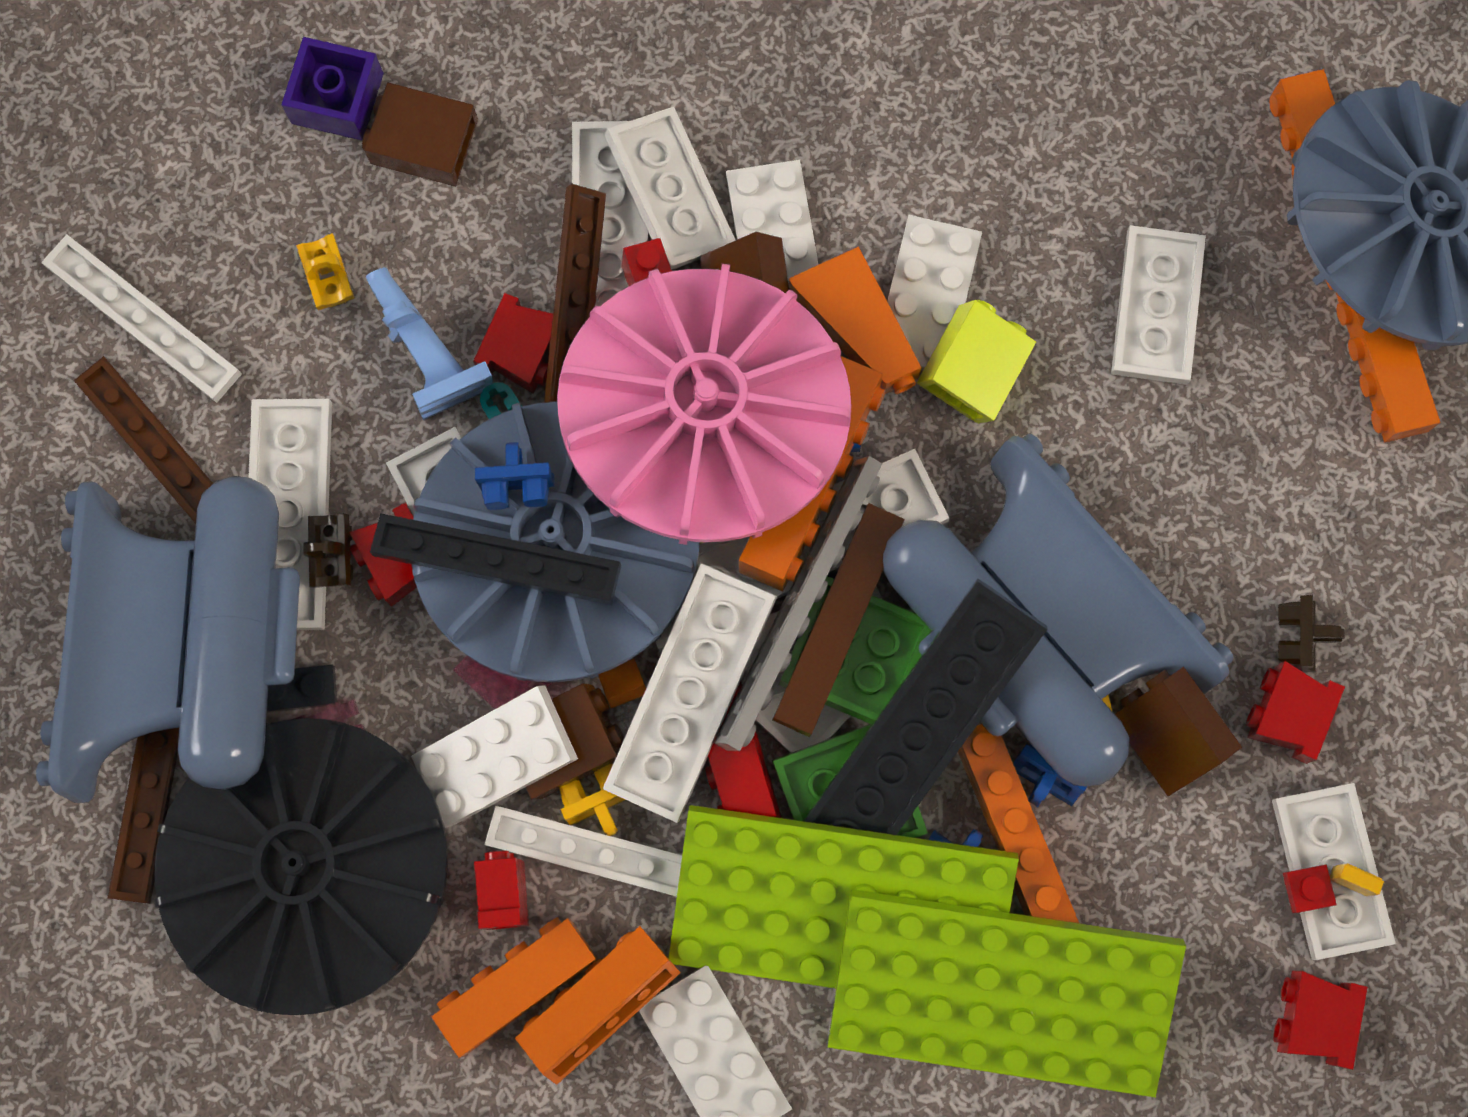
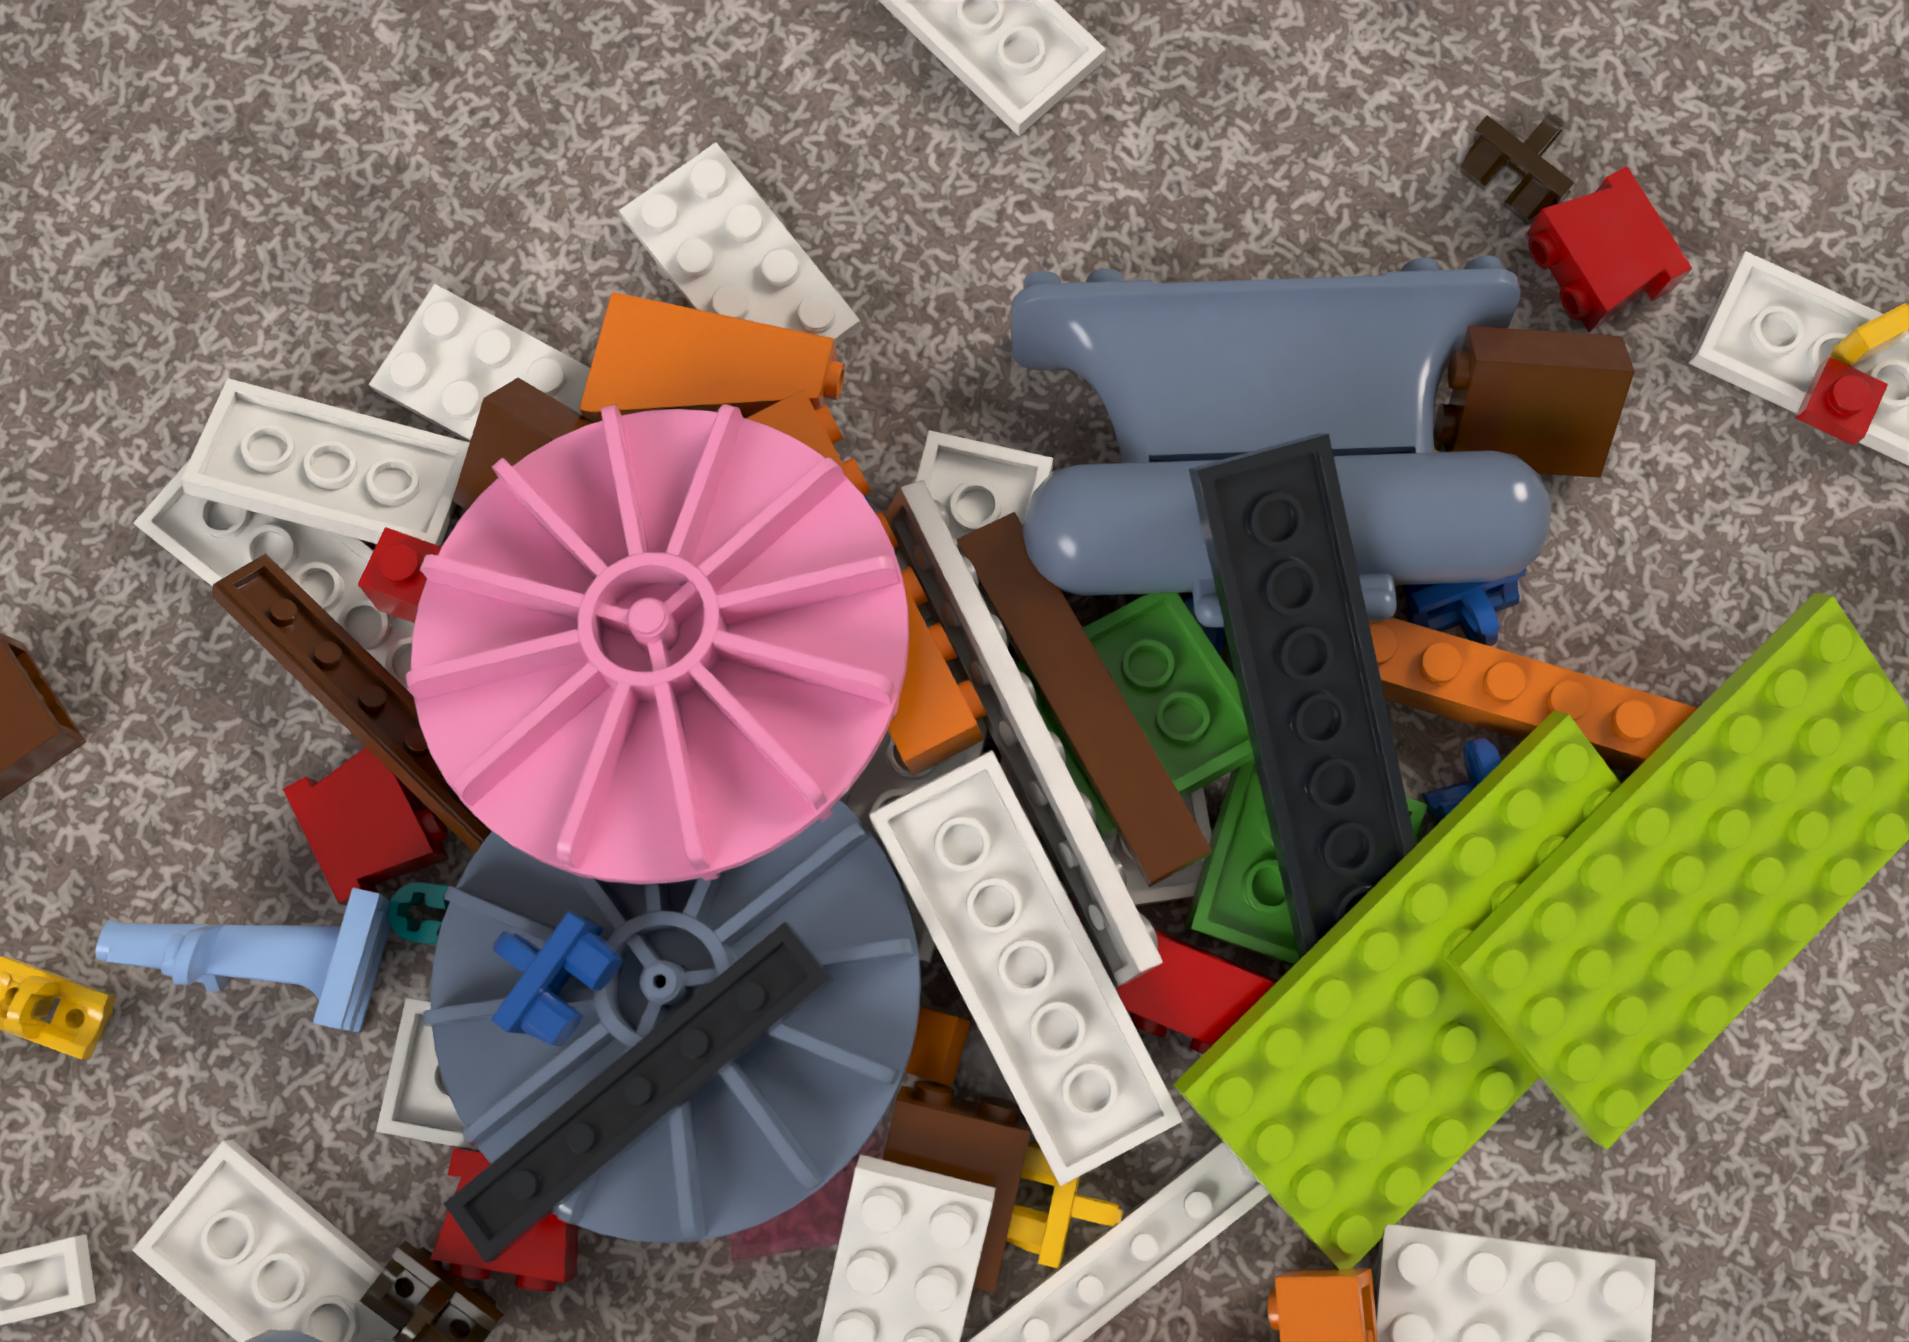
camera: 50 degrees left, 0 degrees up
(977, 361) = (876, 272): neon yellow brick -> none

